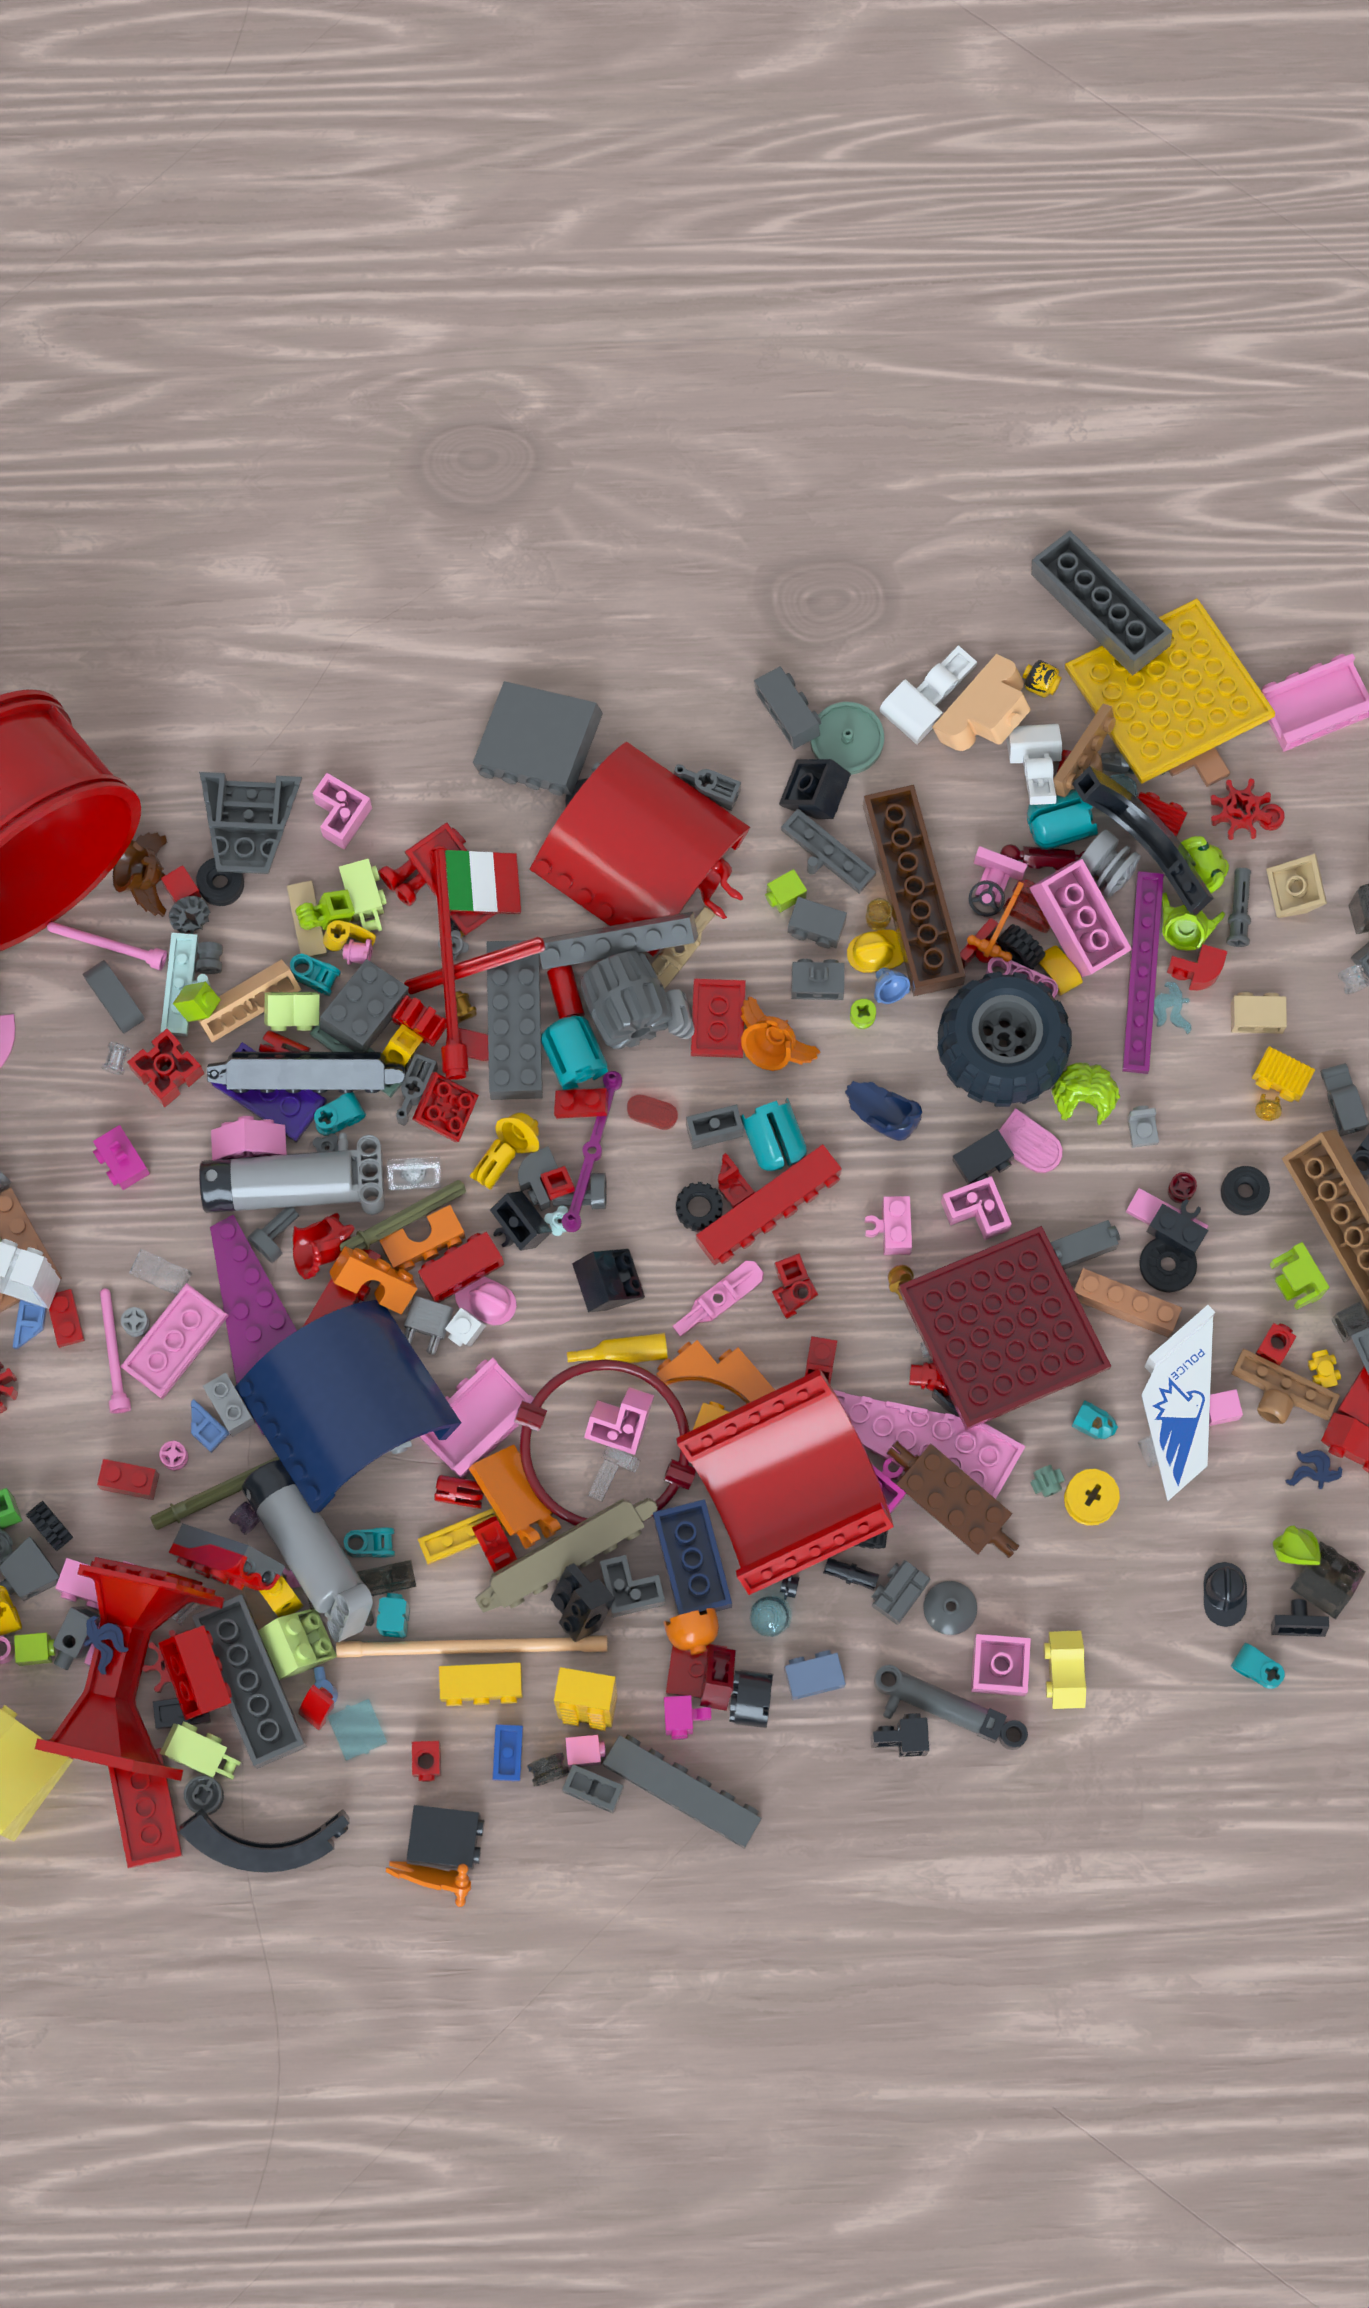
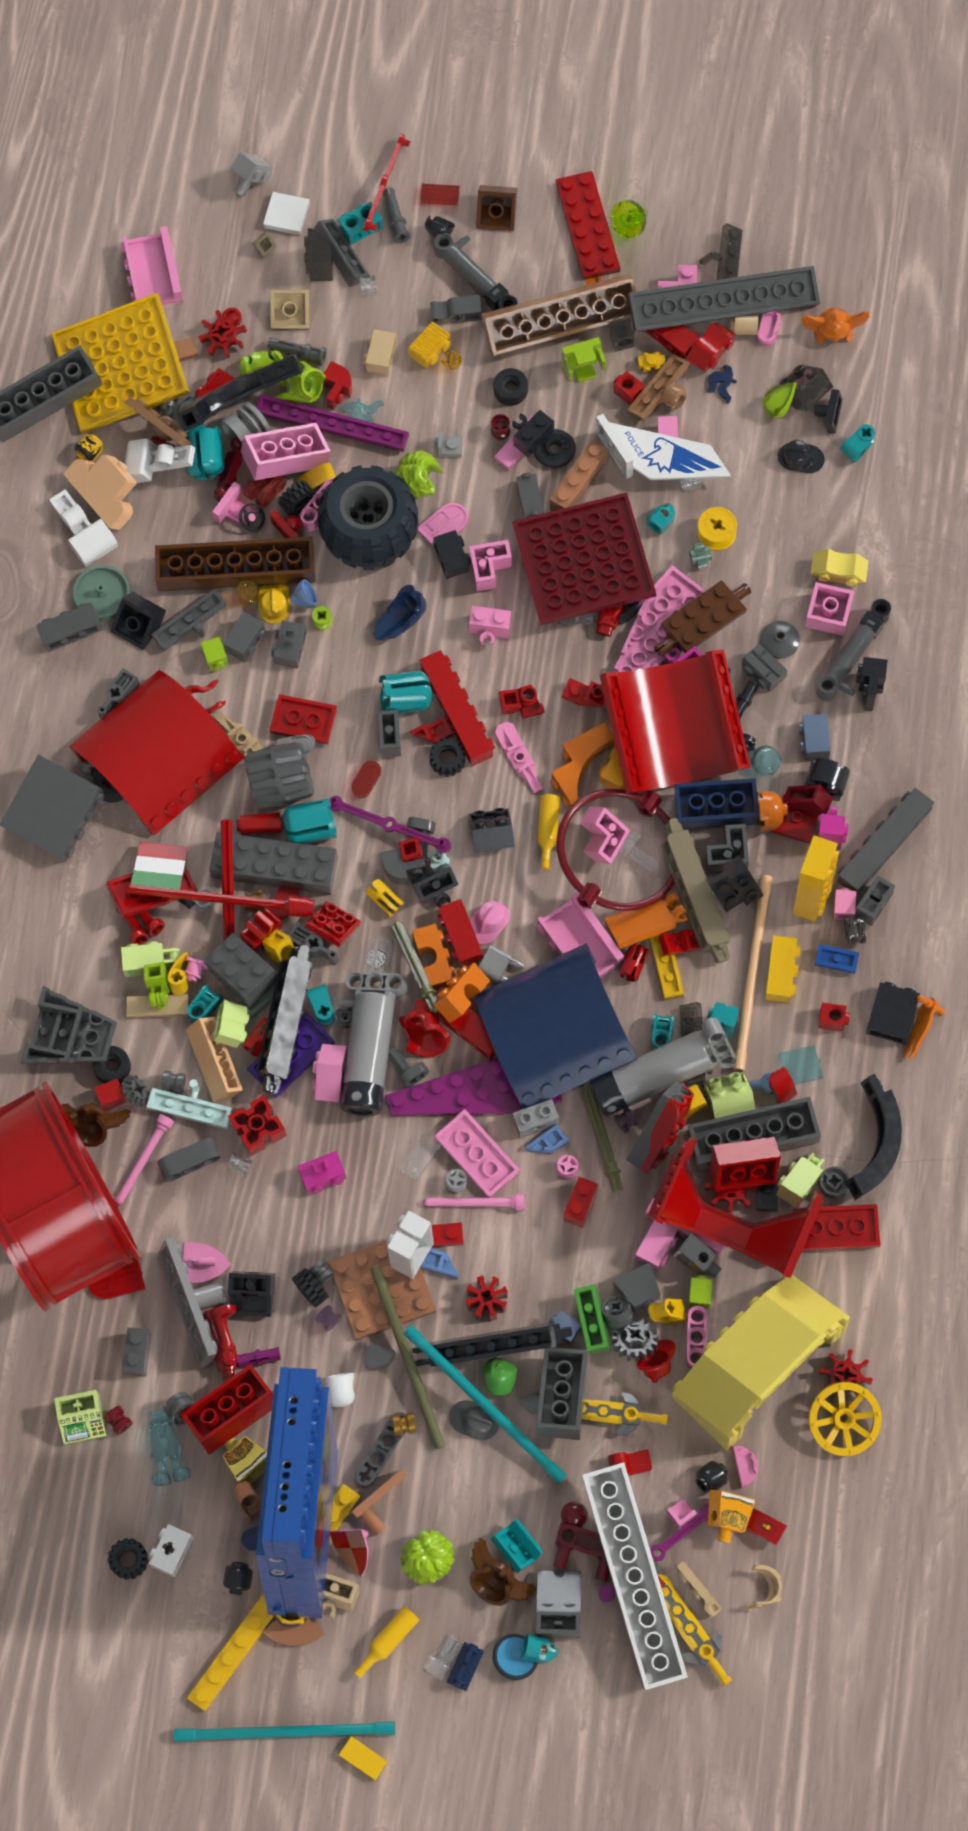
camera: 75 degrees left, 5 degrees down
(49, 1525) = (607, 1264): black tyre -> none
(107, 1631) = (702, 1226): dark blue piece -> none
(196, 1001) = (209, 1092): lime brick -> none
(346, 808) = (75, 958): bright pink brick -> none
(464, 1328) = (509, 936): white brick -> none
(519, 1132) = (365, 871): yellow piece -> none
(581, 1103) = (349, 826): red plate -> none
(617, 939) = (230, 770): dark grey brick -> none
(770, 1040) = (331, 682): orange helmet -> none
(899, 1275) = (531, 626): pearl gold brick -> none
(989, 948) = (293, 516): orange piece -> none

